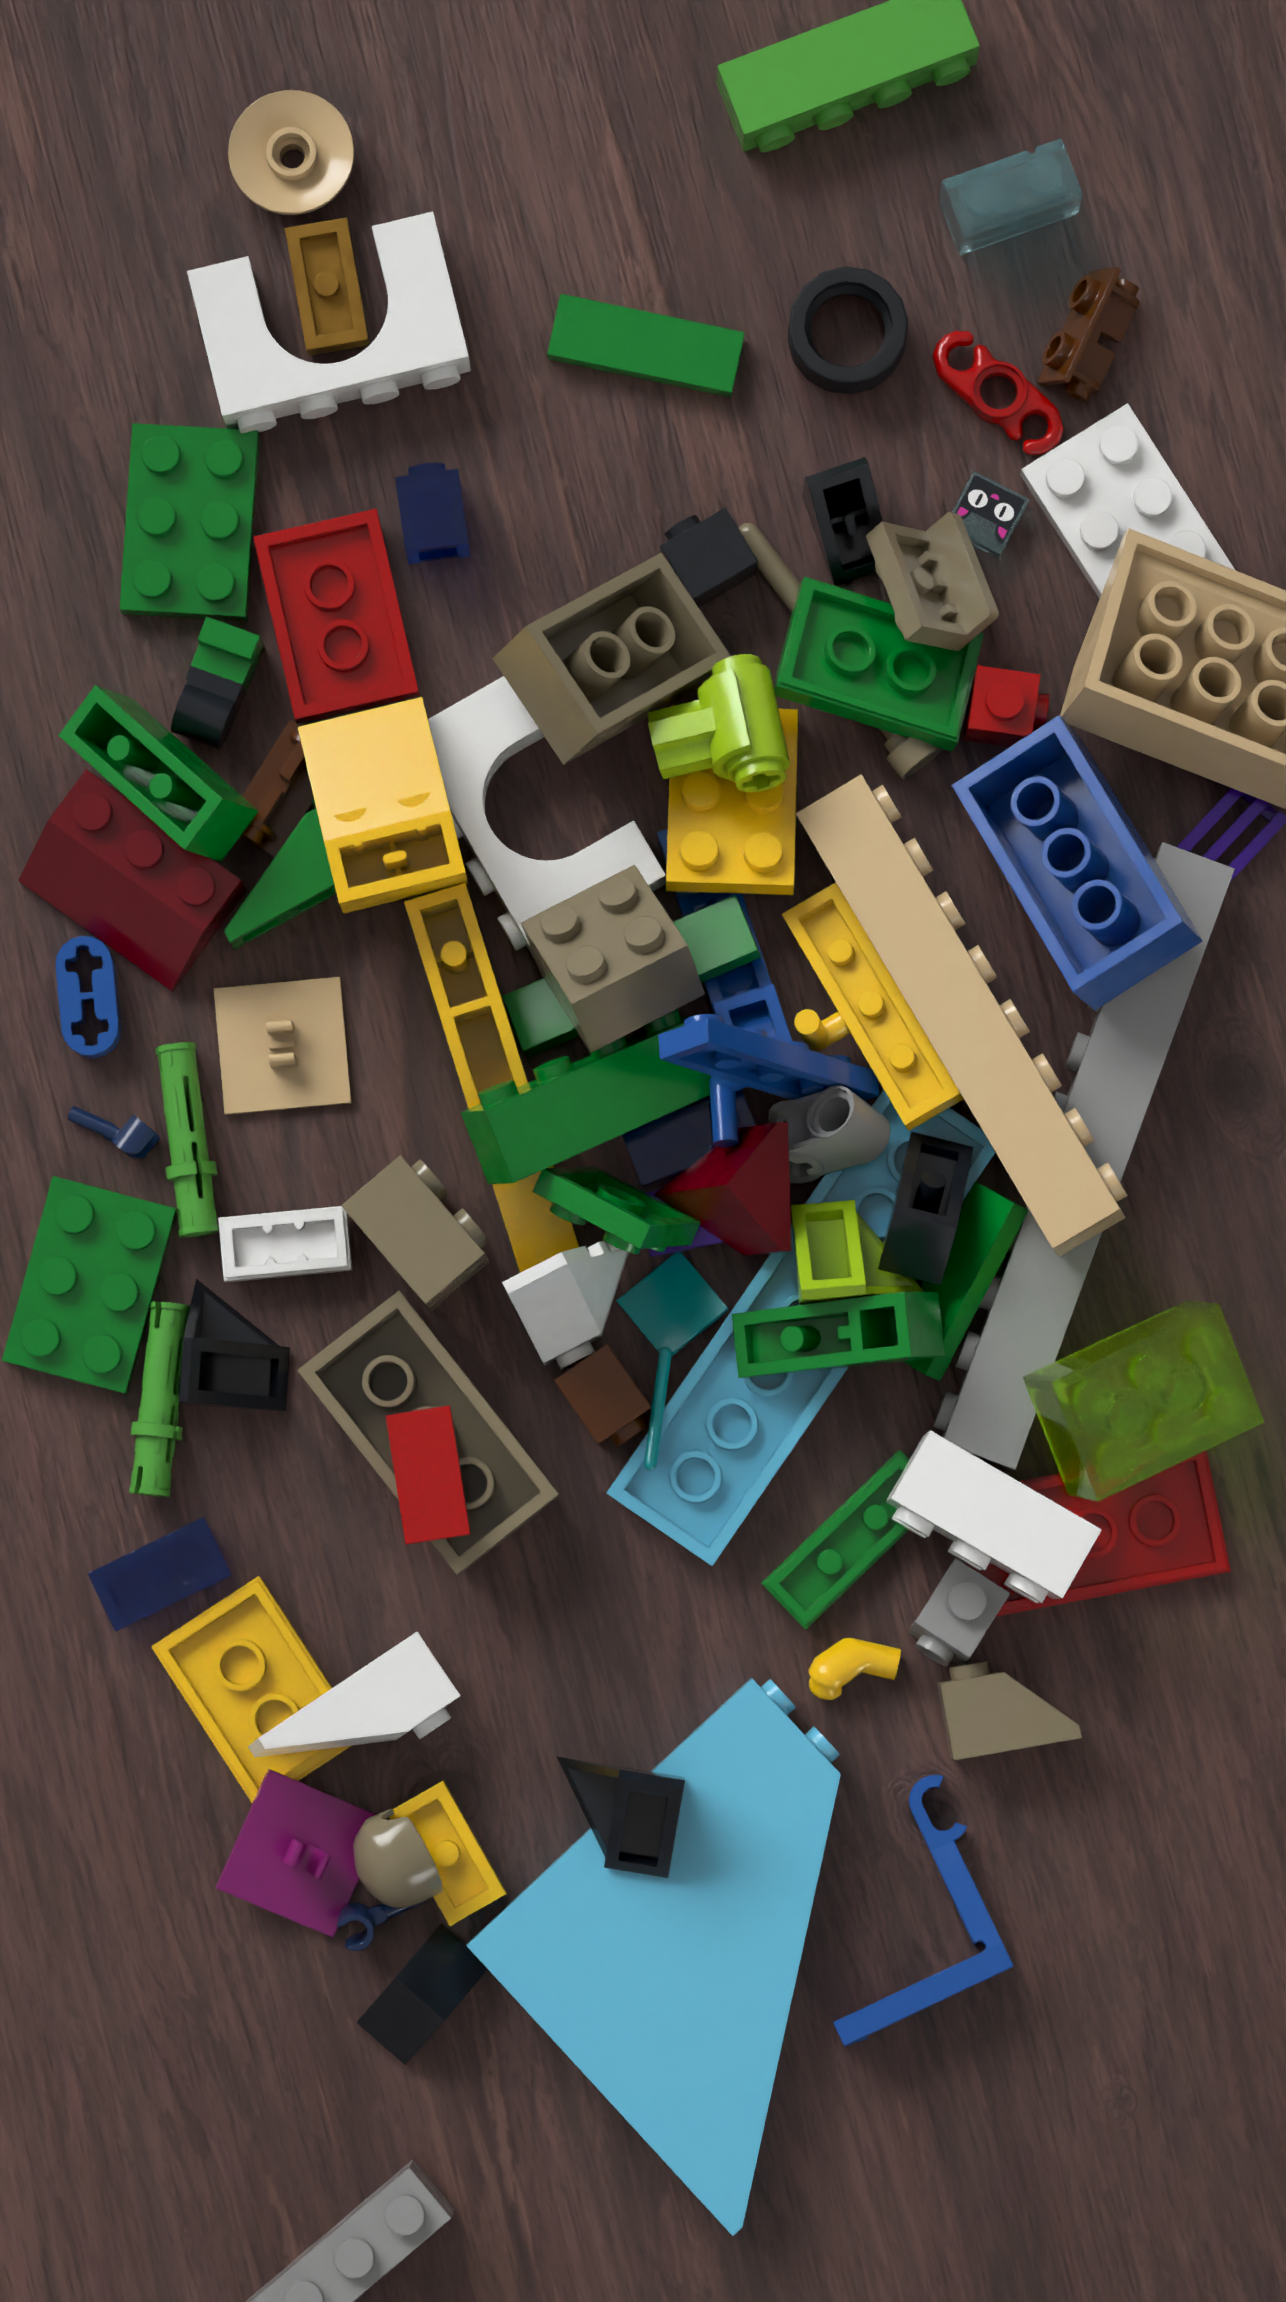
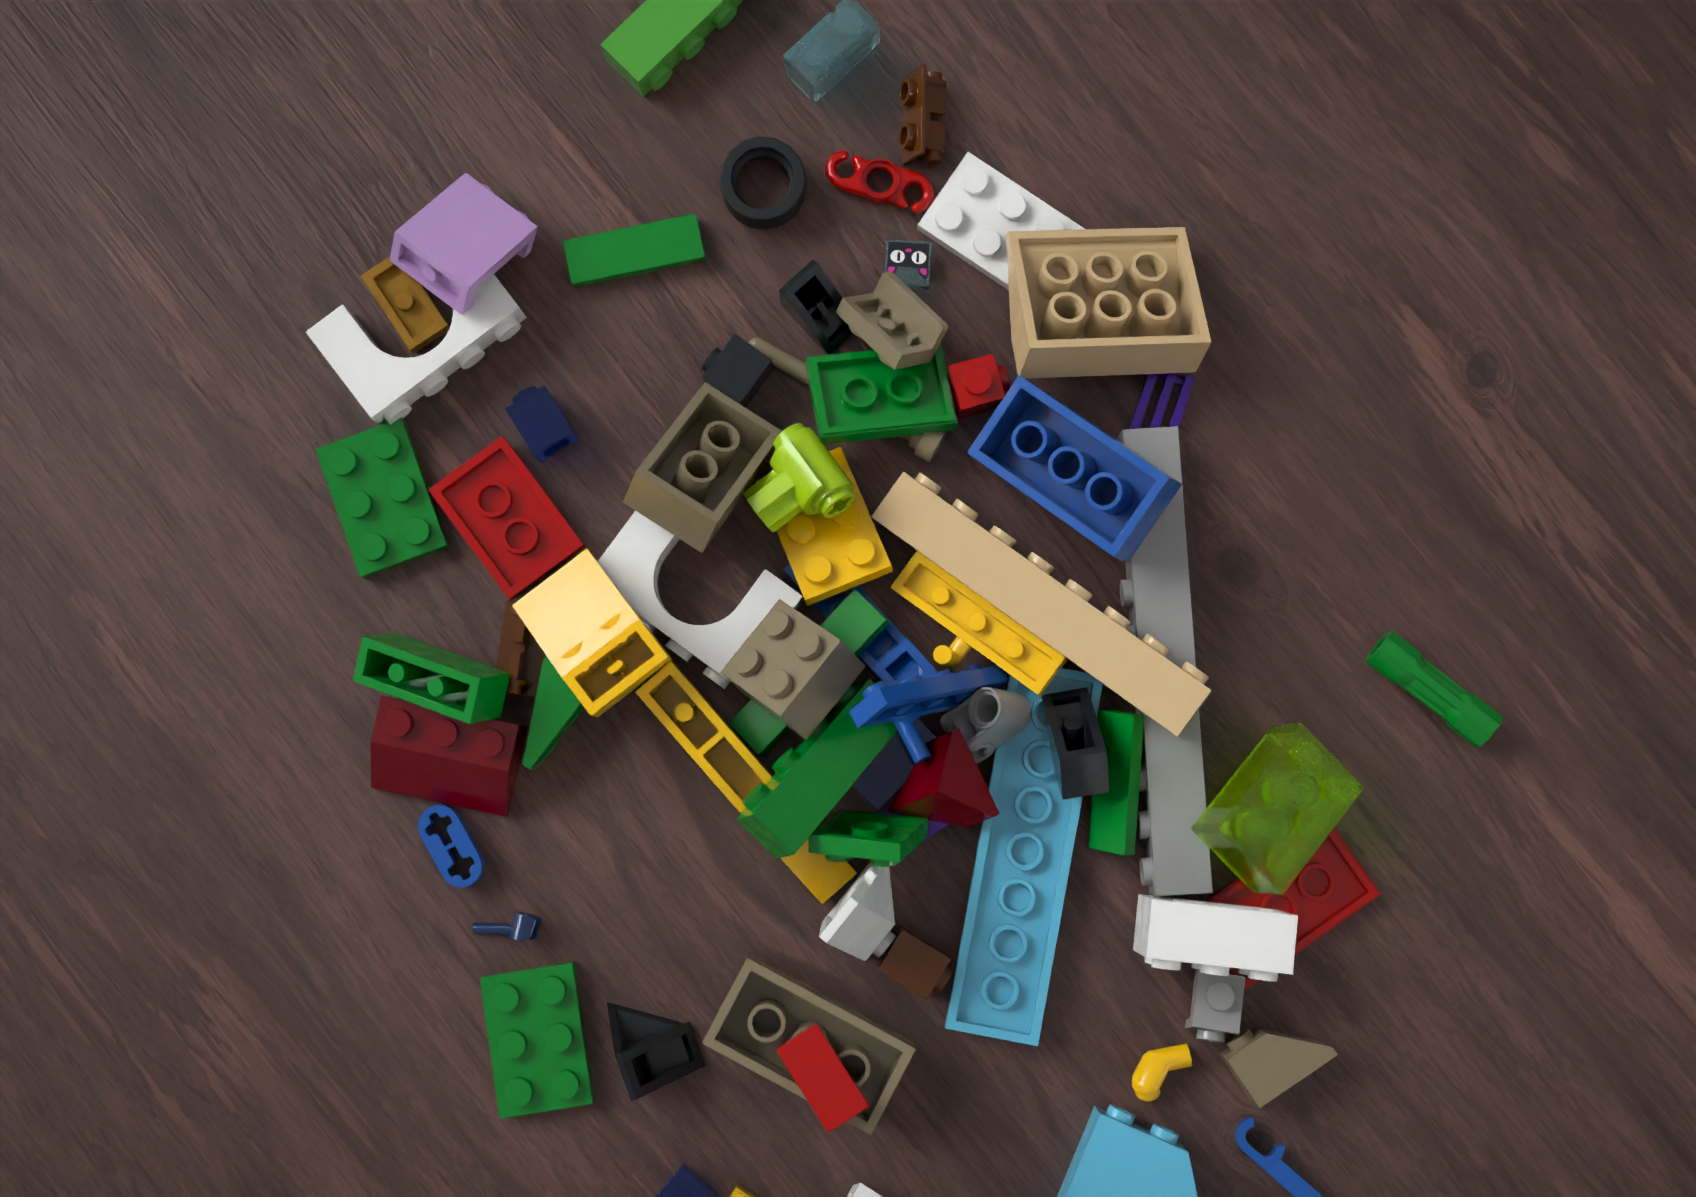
camera: 25 degrees left, 0 degrees up
(158, 1412) = (621, 1111): bright green pin -> none
(187, 1140) = (560, 913): bright green pin -> none
(216, 682) = (446, 597): leg -> none
(282, 1045) = (596, 820): tan piece -> none
(285, 1244) = (656, 954): white plate -> none
(286, 123) = (332, 206): tan dish -> none
(417, 1232) = (741, 910): dark tan brick -> none
(433, 242) = (461, 241): none -> lavender panel
(670, 1310) = (933, 883): teal piece -> none
(838, 1334) = (1055, 854): green slope -> none
(839, 1255) = (1032, 801): lime slope -> none
(840, 1548) = (1115, 993): green tile -> none

